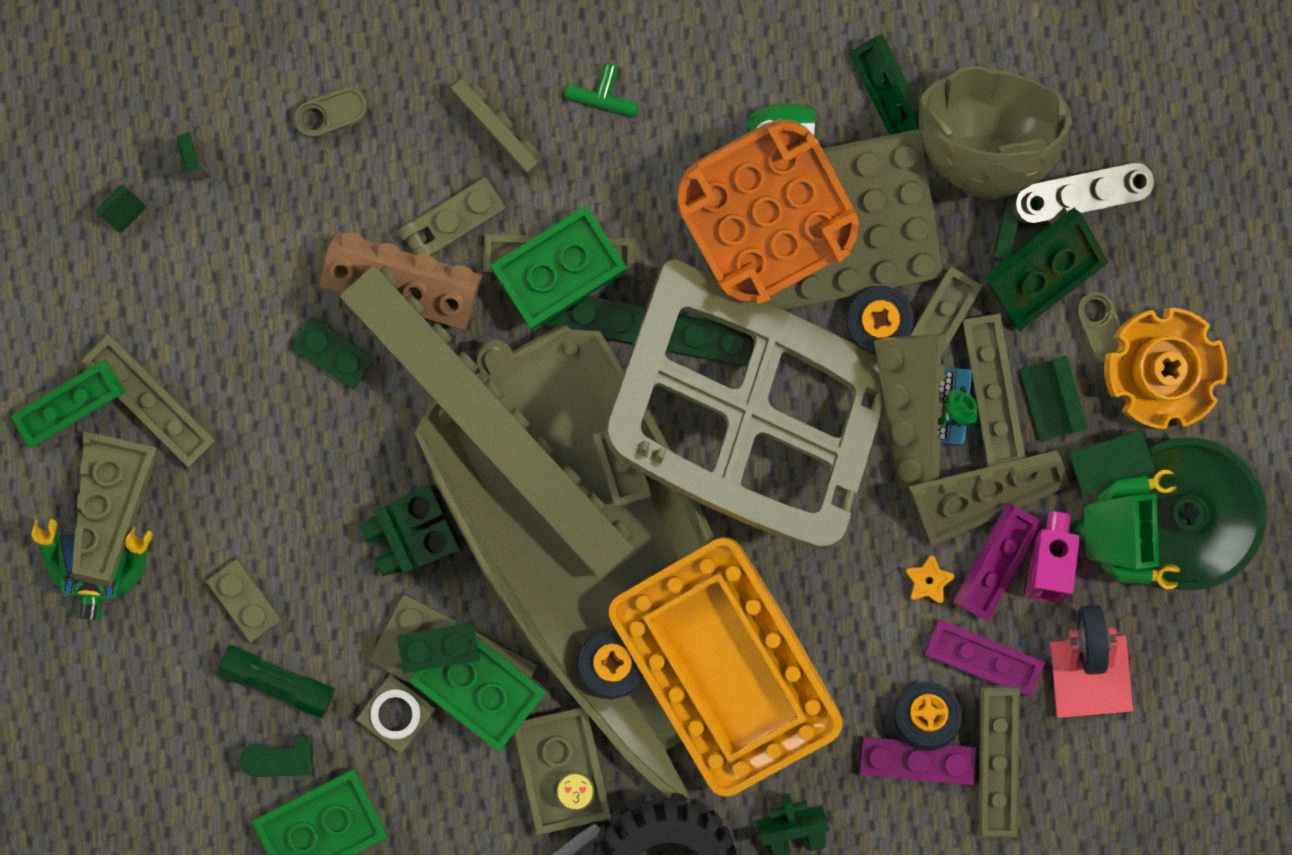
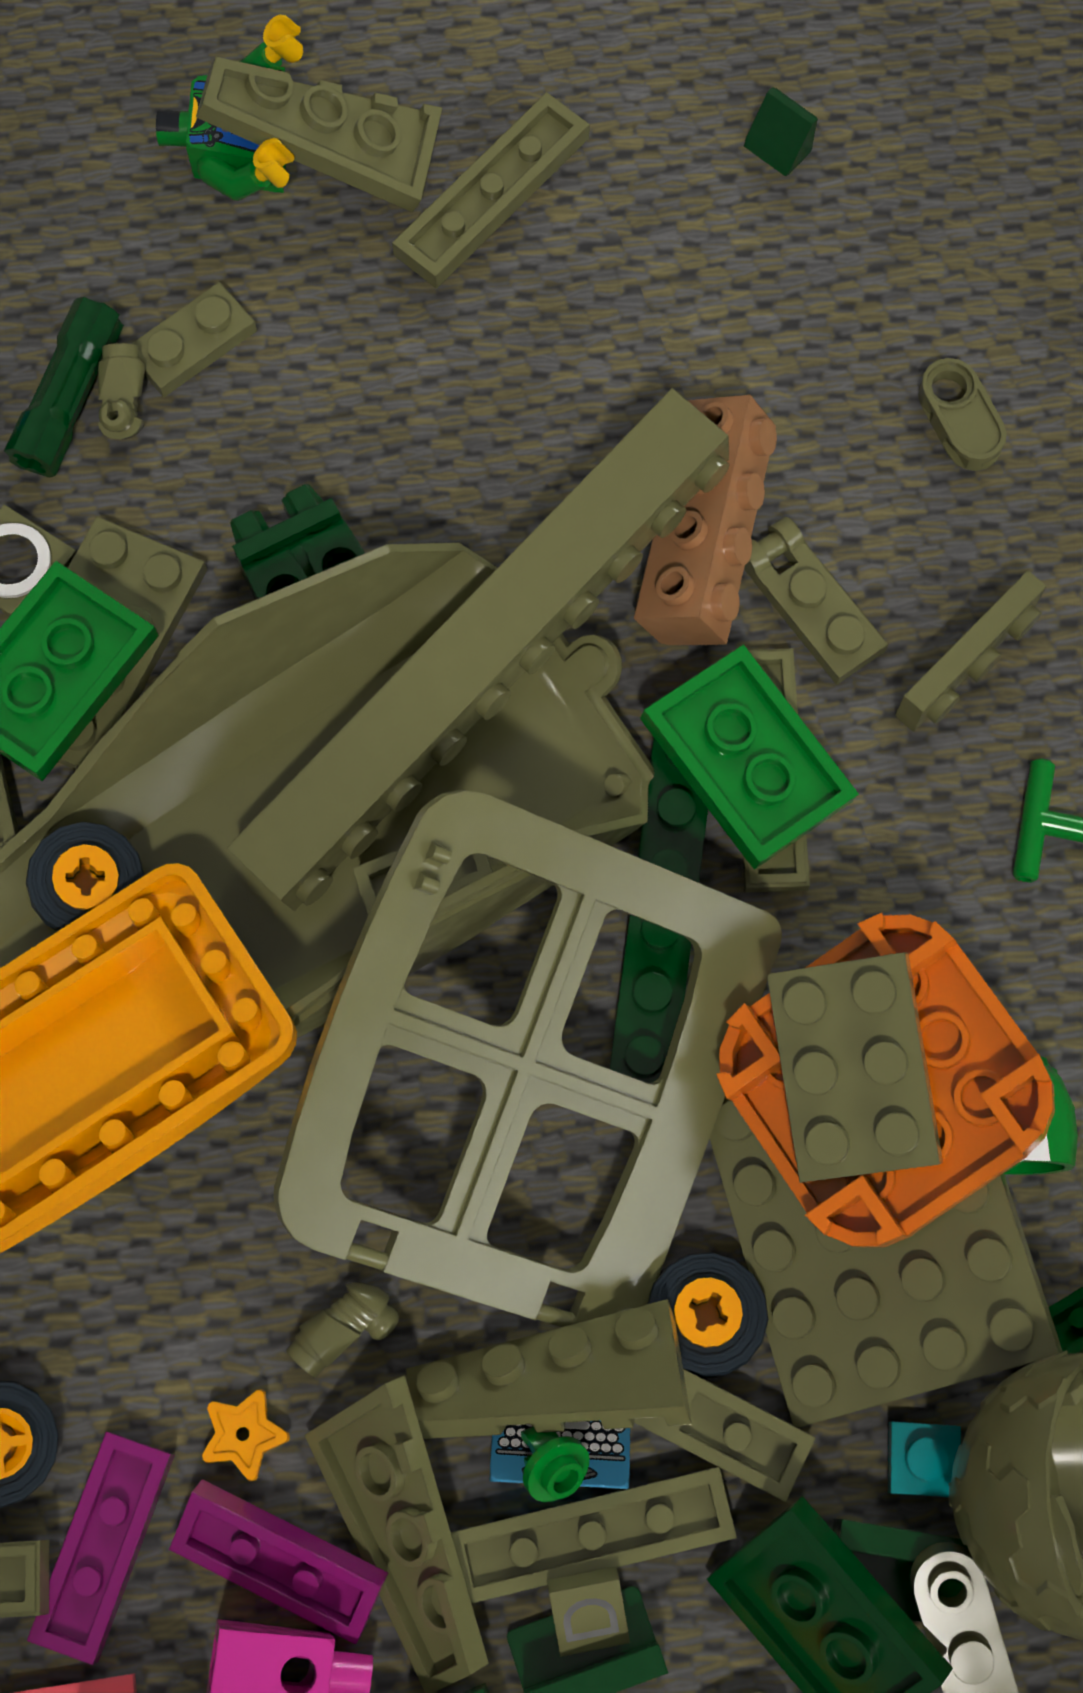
camera: 85 degrees right, 15 degrees down
(68, 403) = (481, 76): green plate -> none
(193, 156) = (872, 208): dark green tile -> none
(282, 645) = (119, 388): none -> olive arm
(332, 352) = (583, 437): dark green plate -> none
(438, 648) = (107, 597): dark green plate -> none
(762, 228) = (854, 1068): none -> olive plate
(874, 523) = (336, 1328): none -> olive arm
(962, 209) = (921, 1458): none -> teal plate
(1033, 395) = (588, 1611): none -> olive tile

